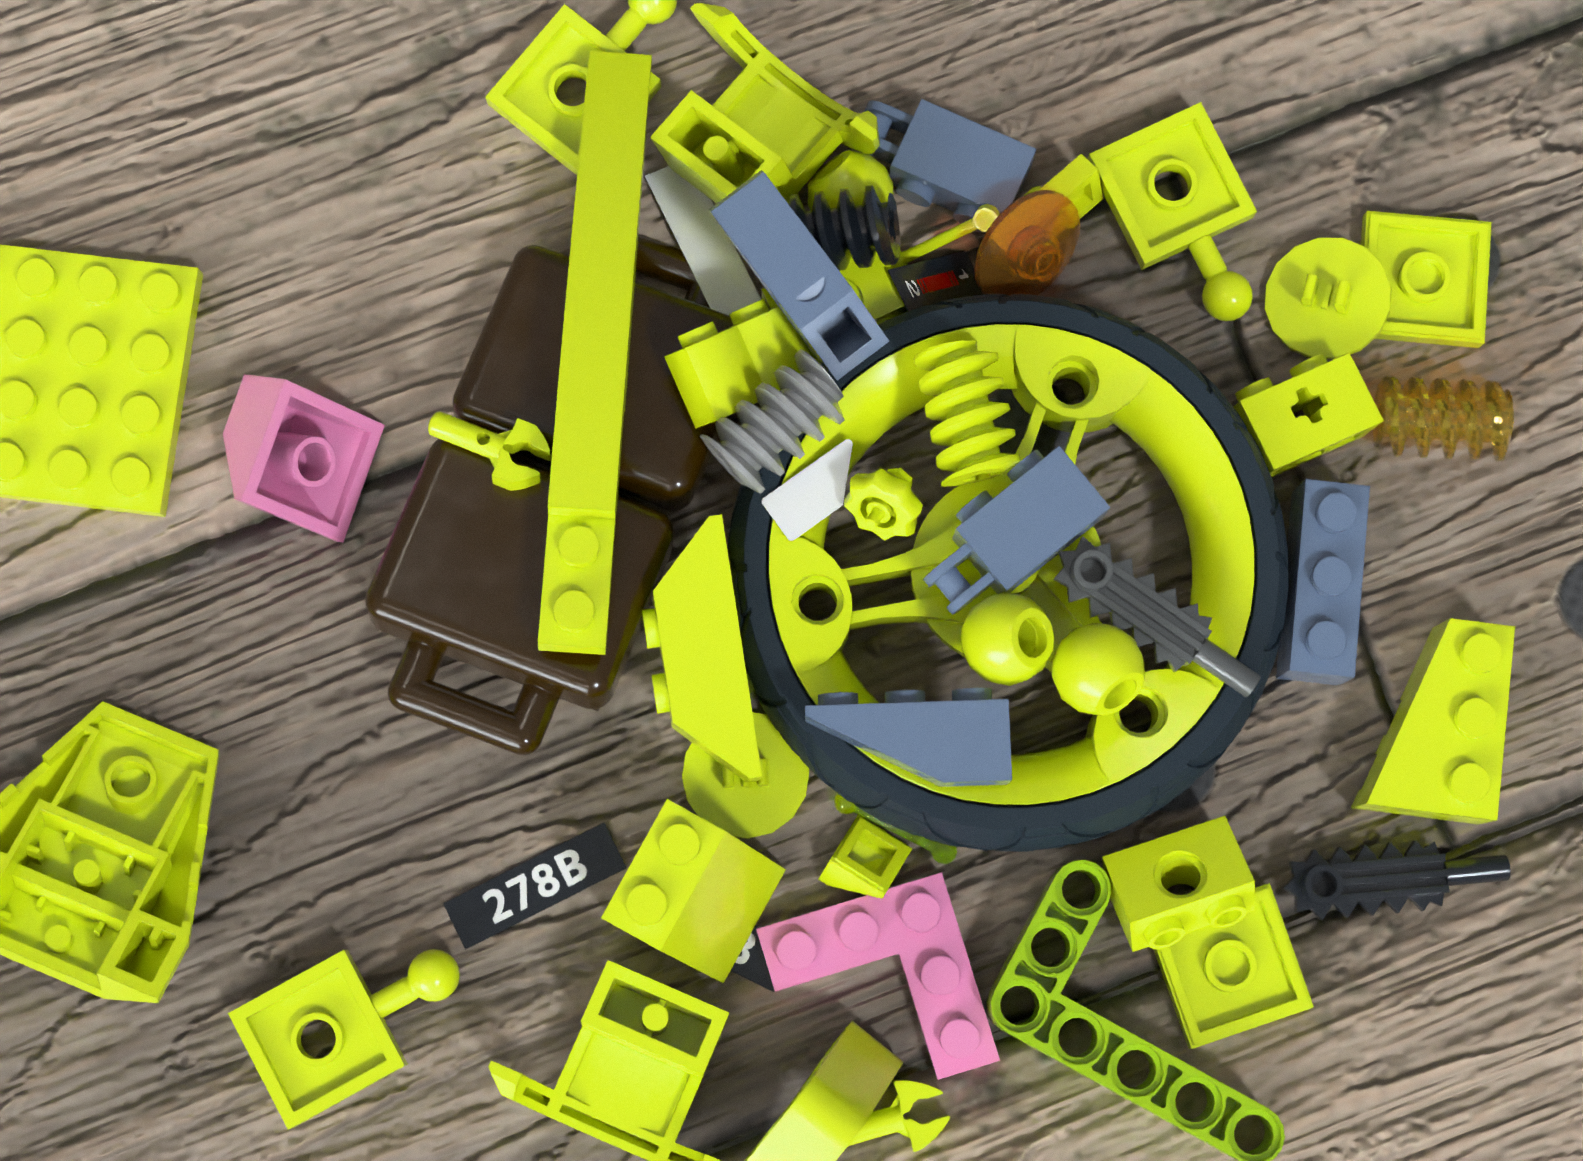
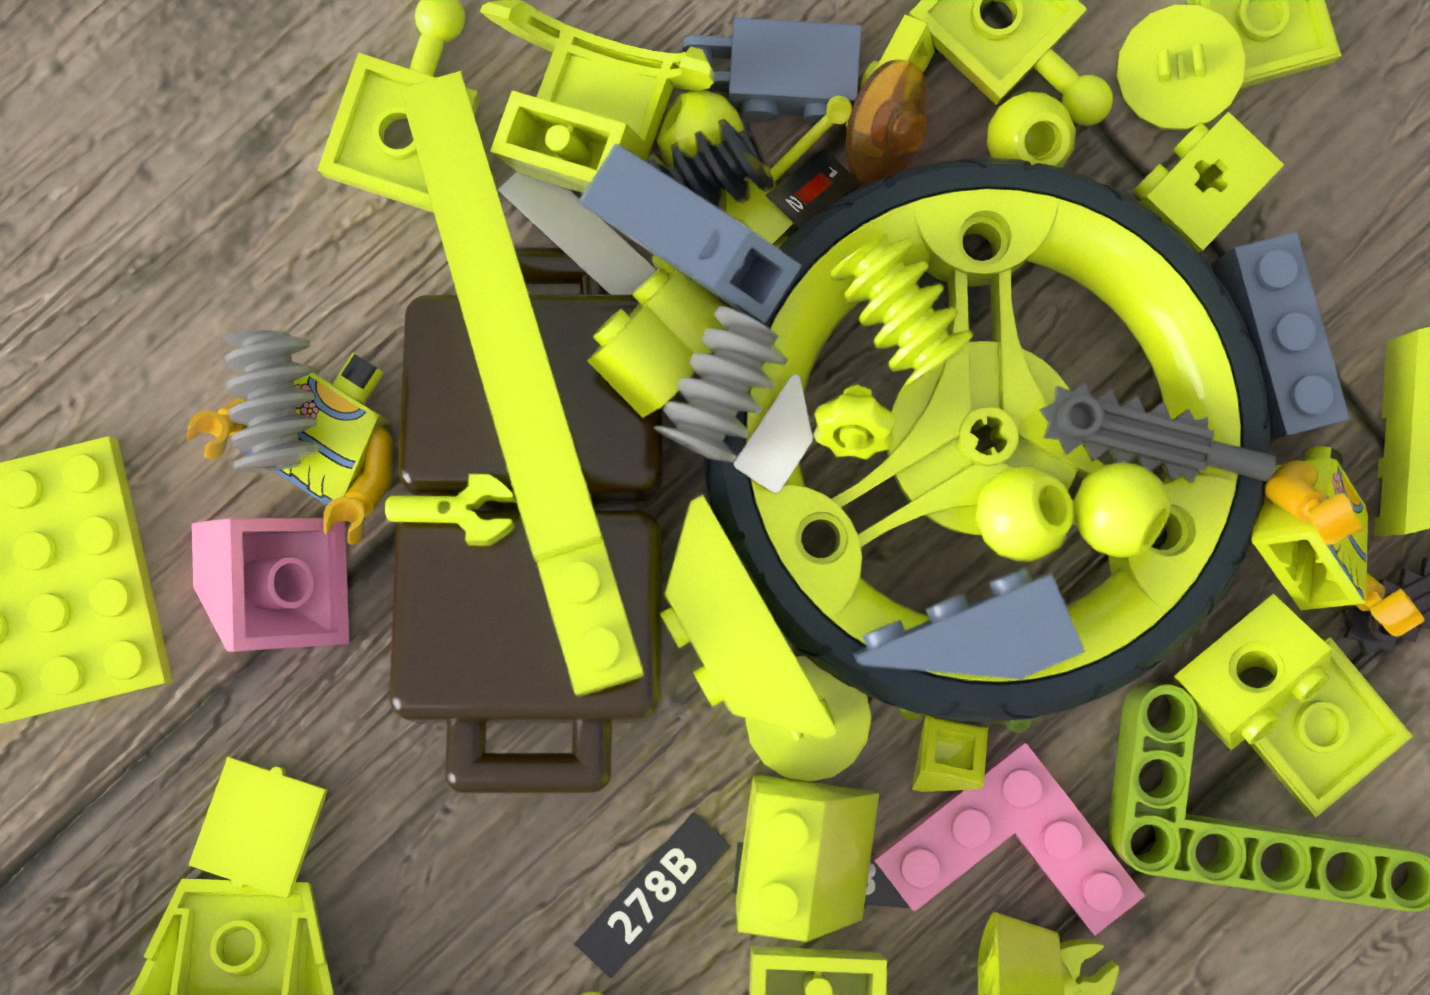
camera: 20 degrees left, 5 degrees up
(192, 680) = (258, 827): none -> neon yellow piece
(361, 286) = (270, 398): none -> light grey piece
(387, 338) = (353, 442): none -> torso
(1019, 528) = (995, 400): sand blue brick -> none
(1161, 304) = (1032, 130): none -> neon yellow piece
(1284, 778) = (1317, 541): none -> torso
(1444, 416) = (1336, 138): clear yellow piece -> none

